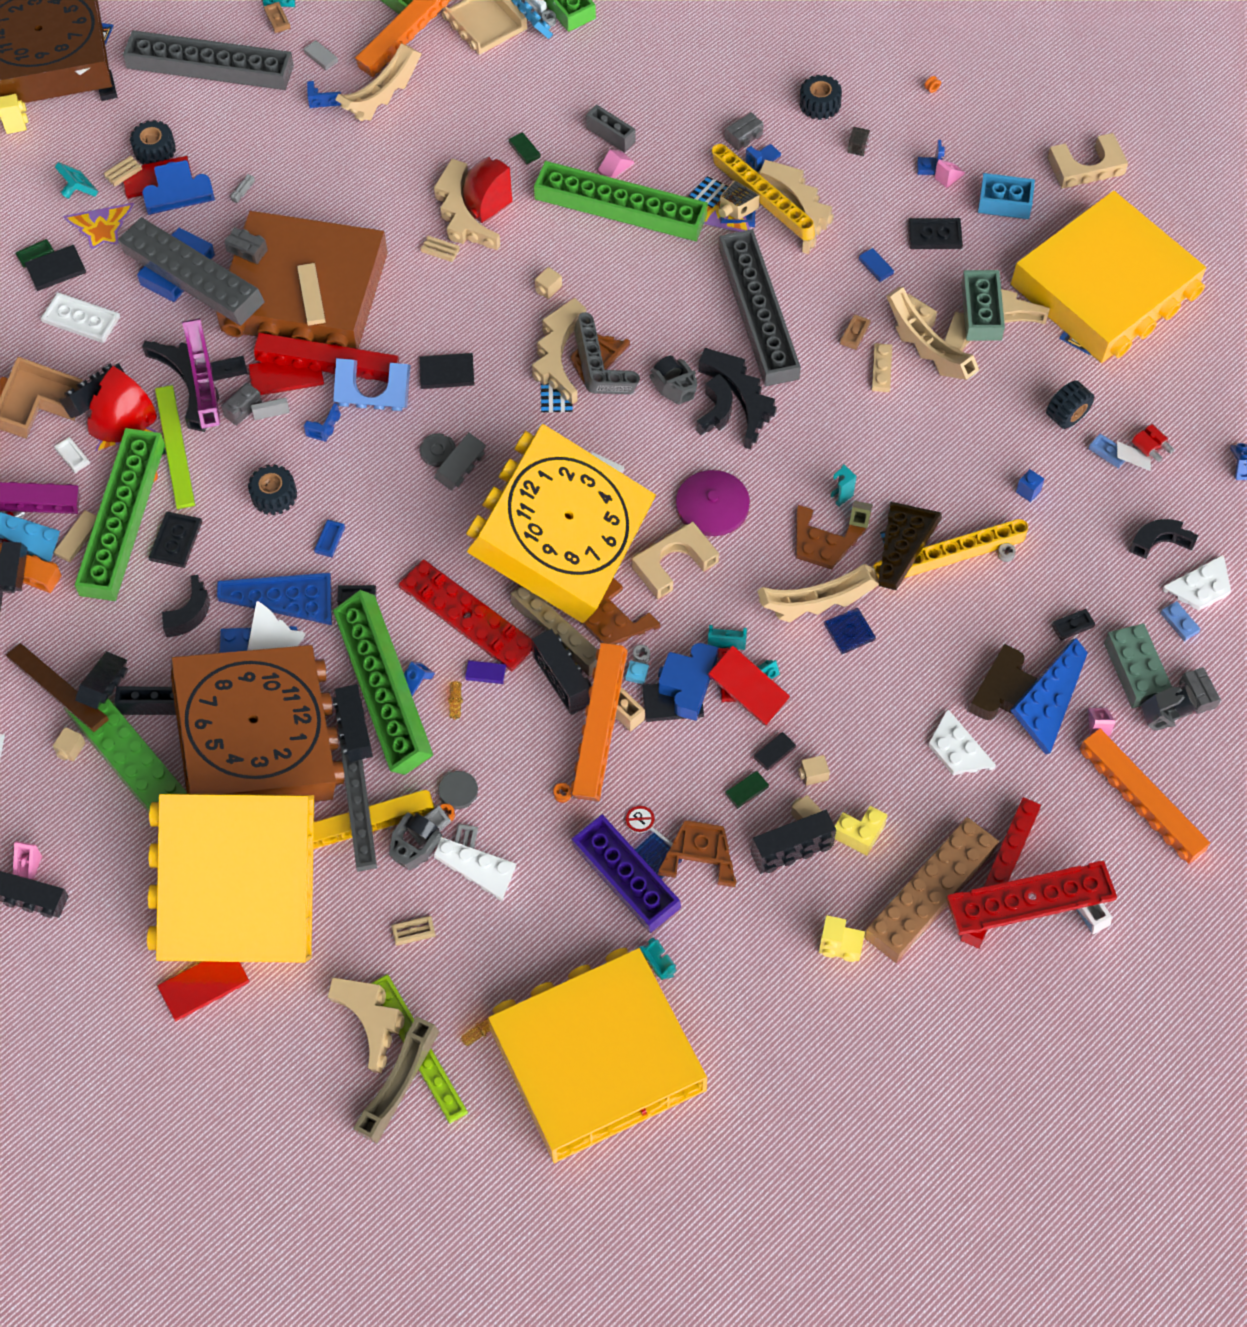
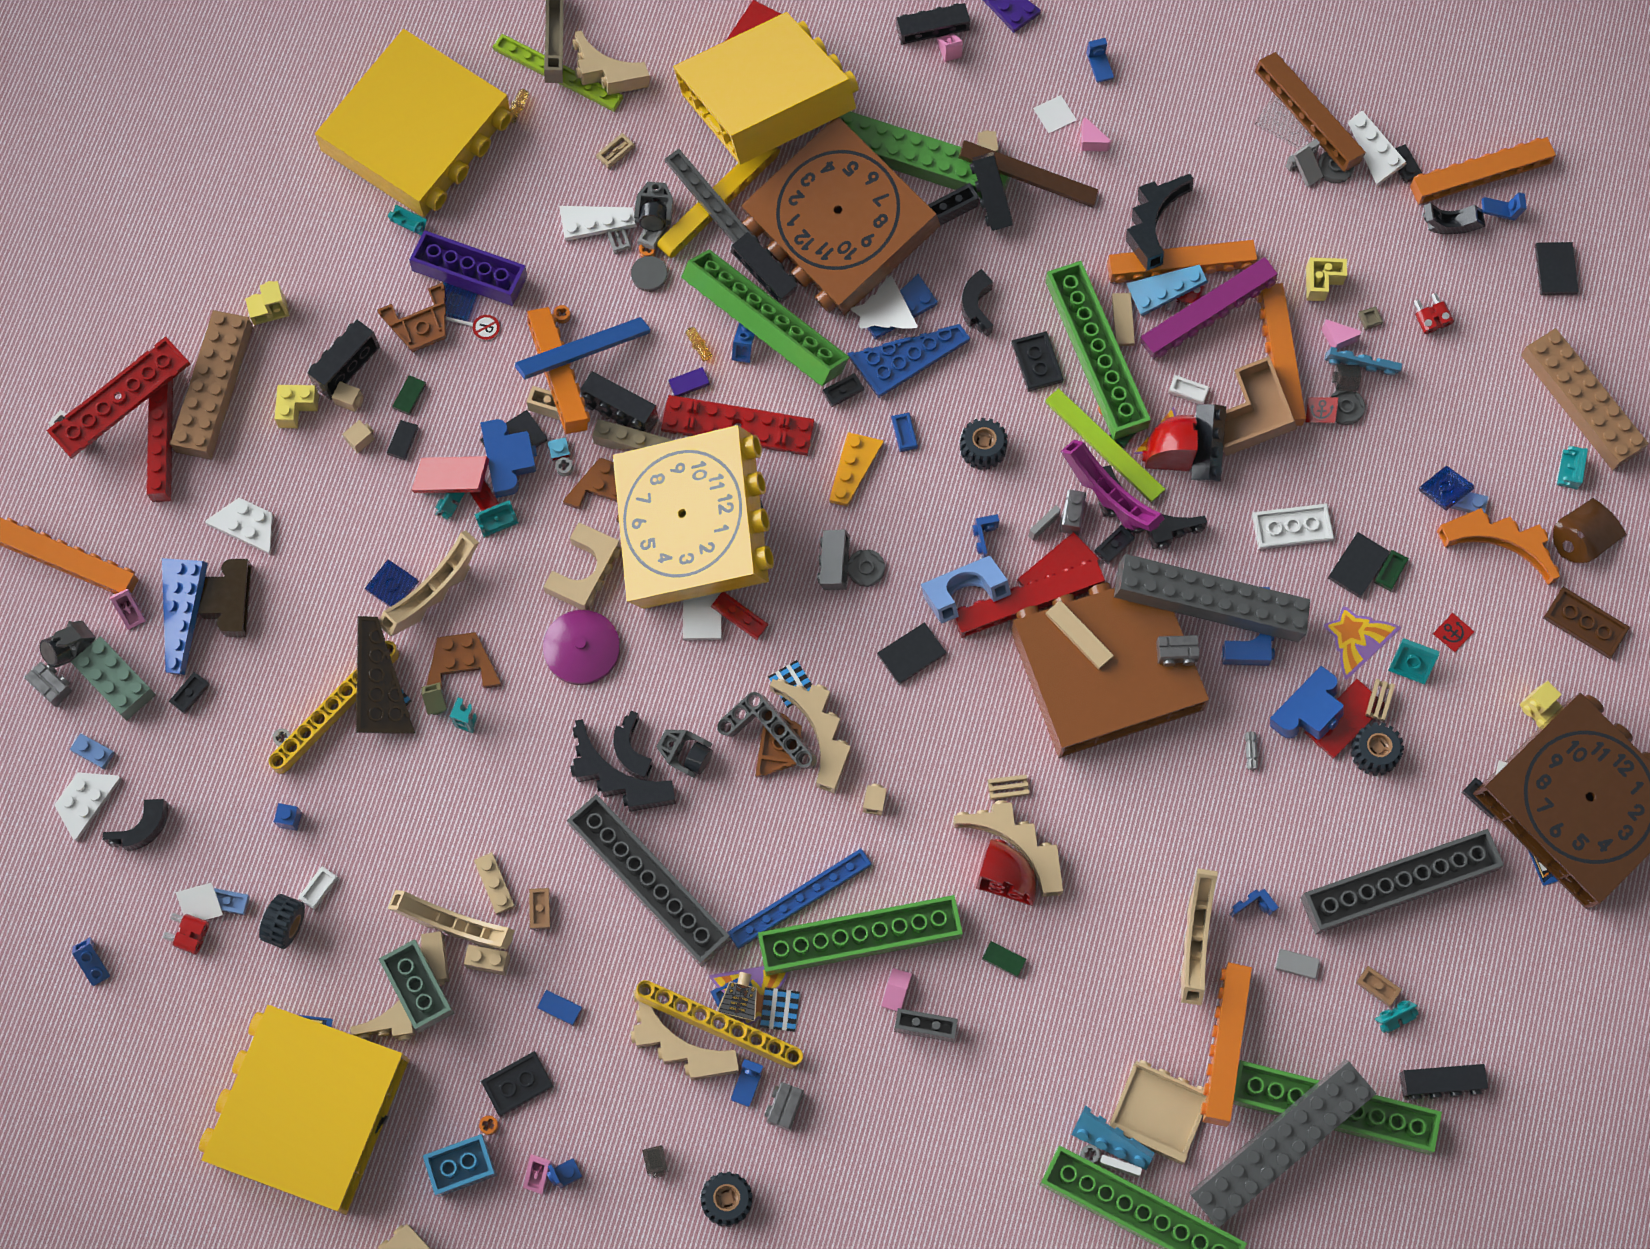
camera: 150 degrees right, 10 degrees up
(28, 195) = (1453, 632): none -> red sticker
(390, 533) = (855, 460): none -> light orange wing
(565, 727) = (582, 348): none -> blue tile
(648, 251) = (799, 898): none -> blue tile
(970, 221) = (487, 1119): none -> orange bush
(1028, 429) = (318, 888): none -> white tile

